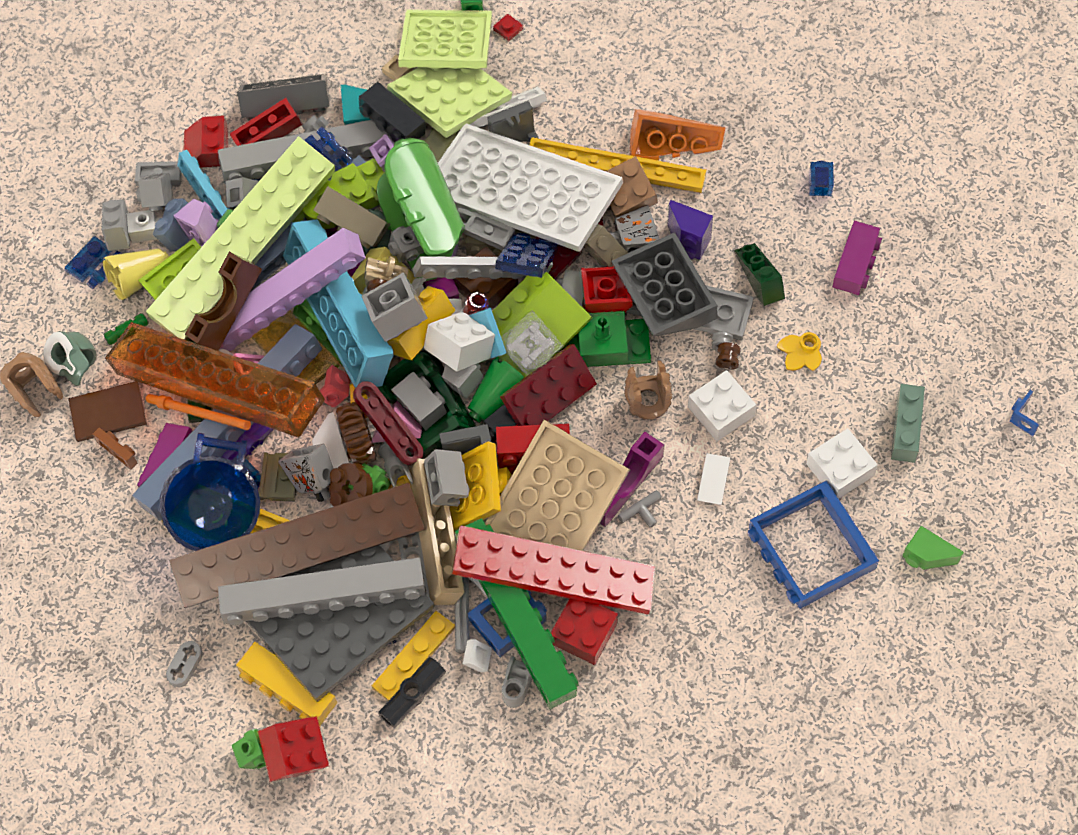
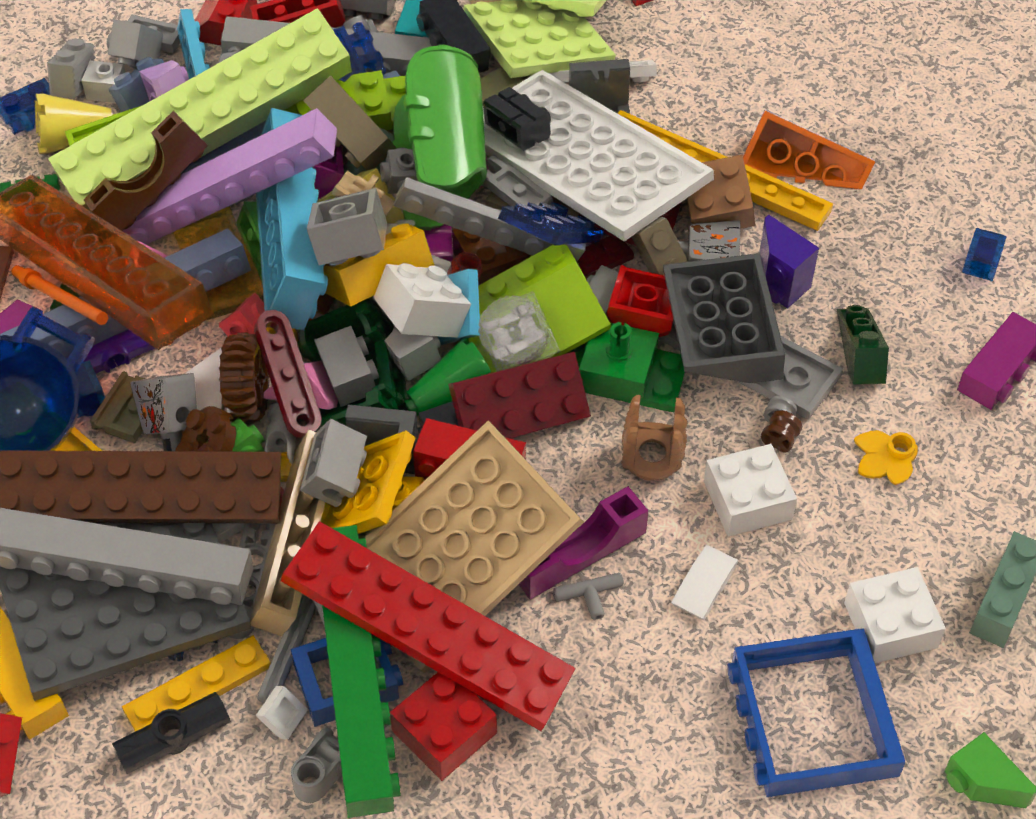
camera: 15 degrees right, 10 degrees down
(468, 174) = (517, 118): none -> black brick

